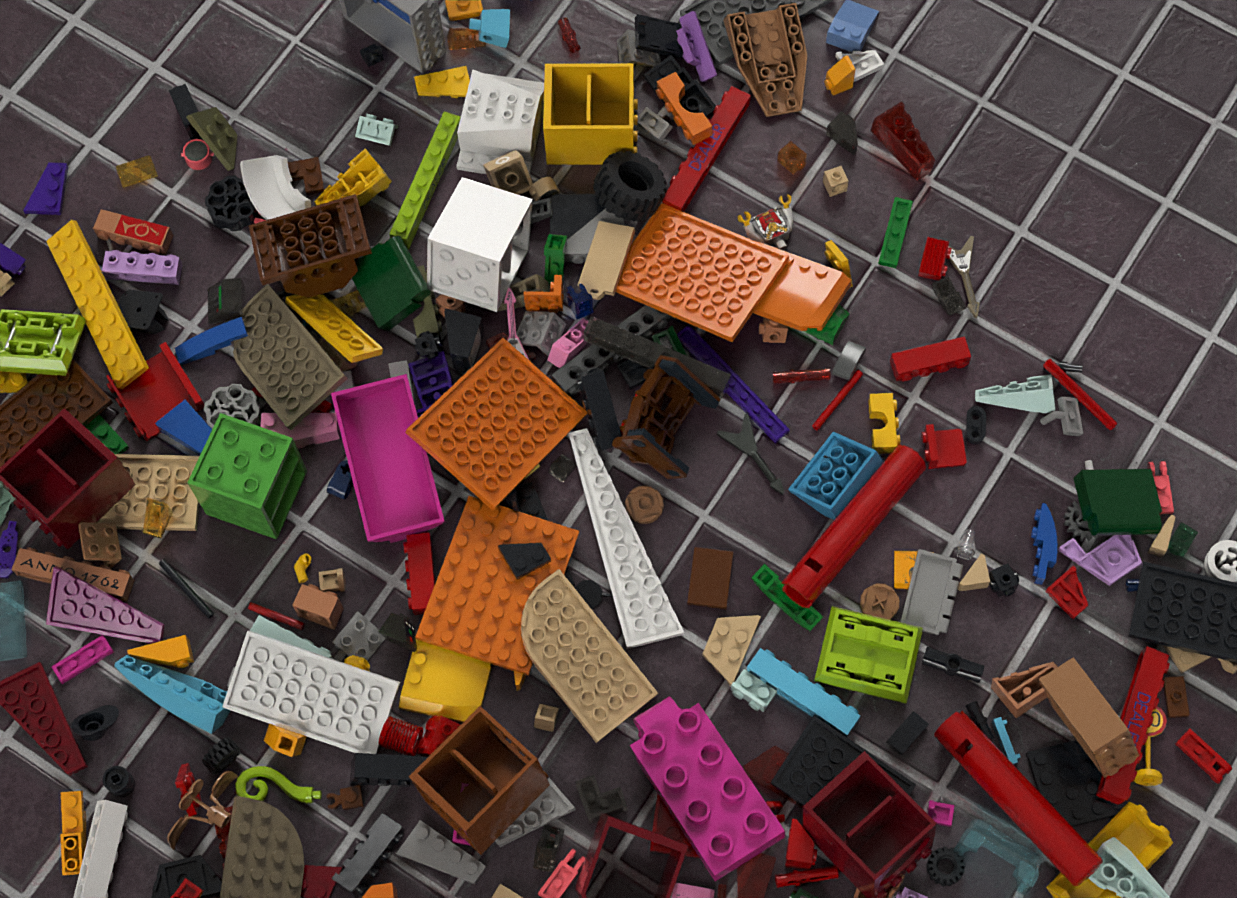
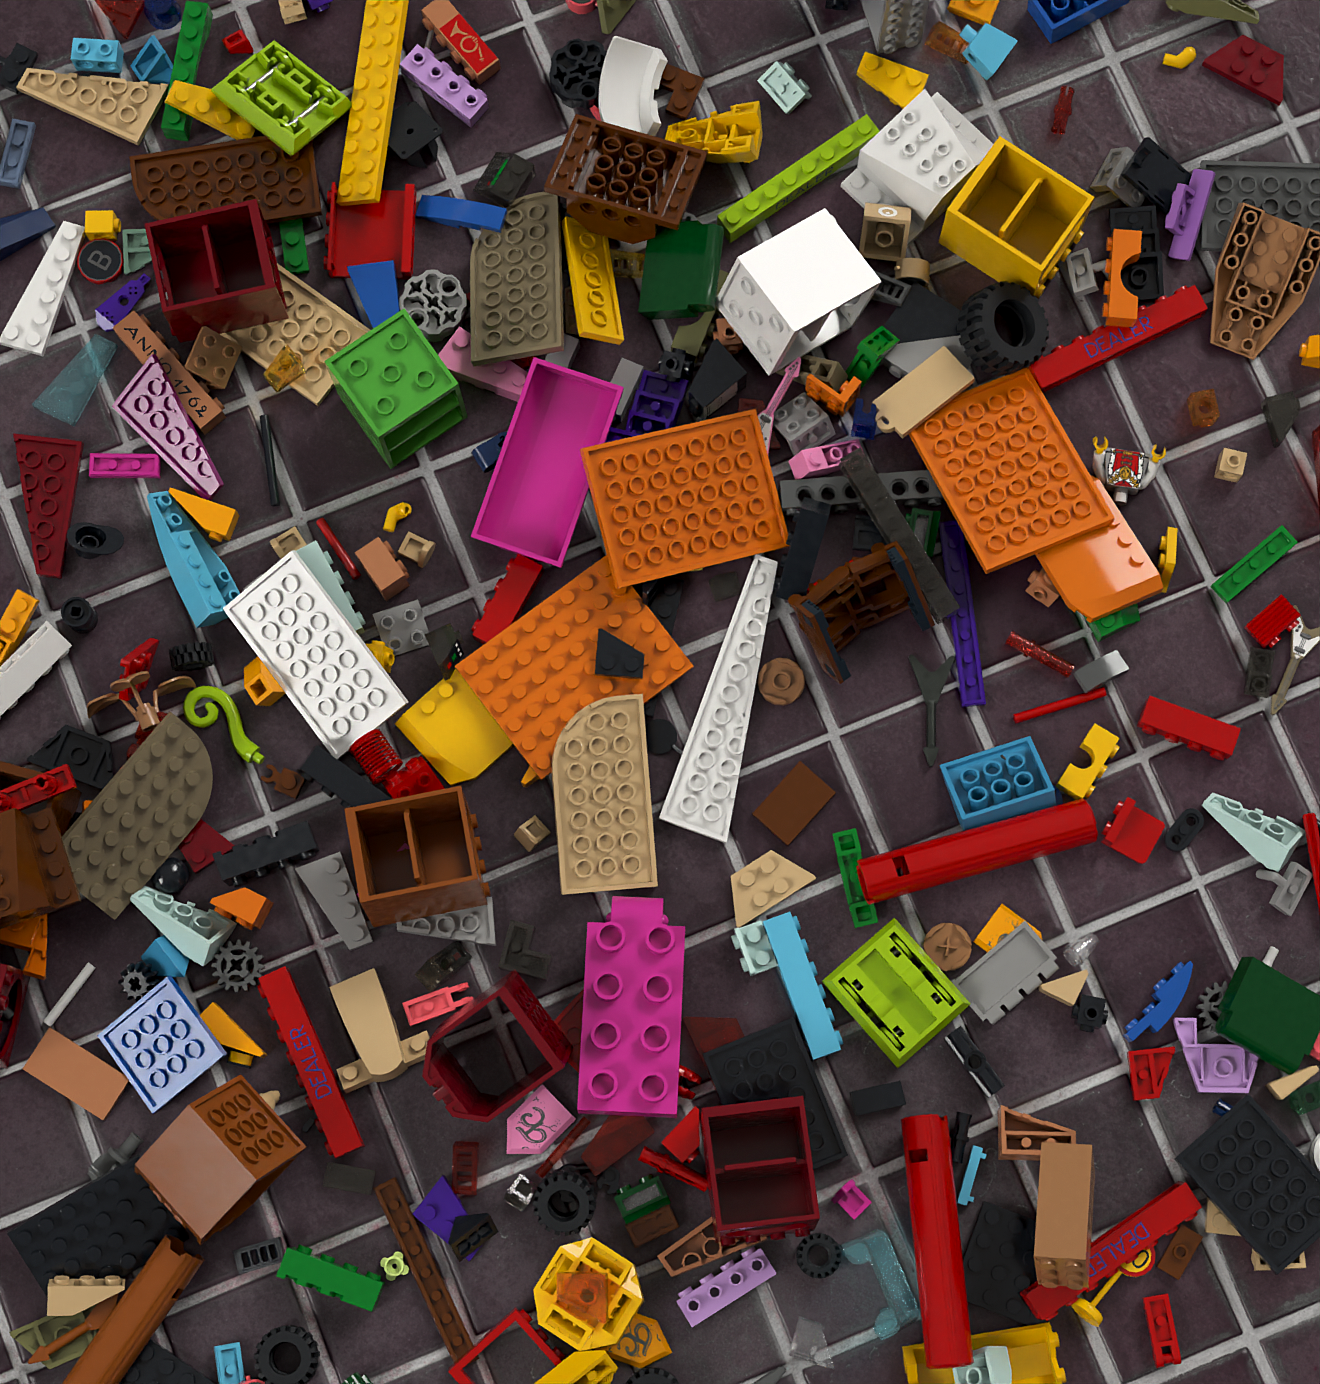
camera: 35 degrees right, 10 degrees up
(237, 635) = (287, 542): none -> tan tile

